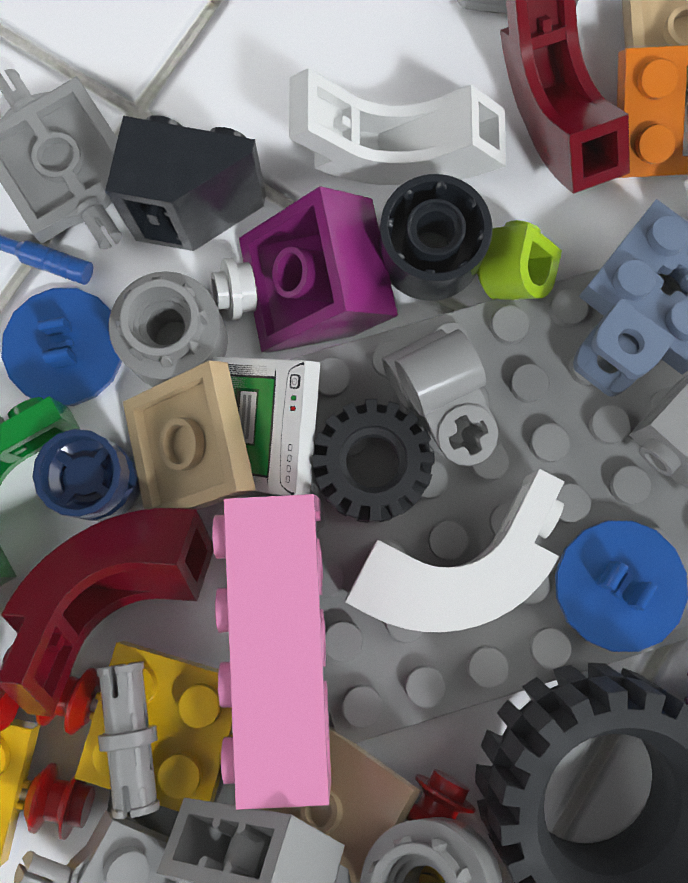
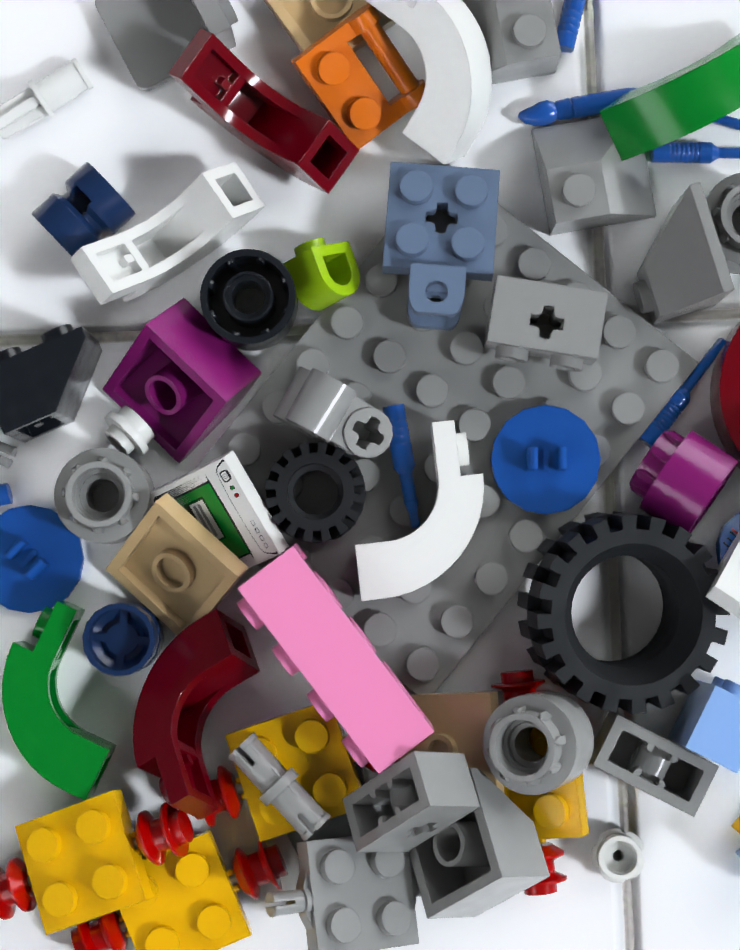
camera: 30 degrees left, 5 degrees up
(343, 56) = (85, 193): none -> dark blue wheel
(478, 493) = (403, 459): none -> blue piece

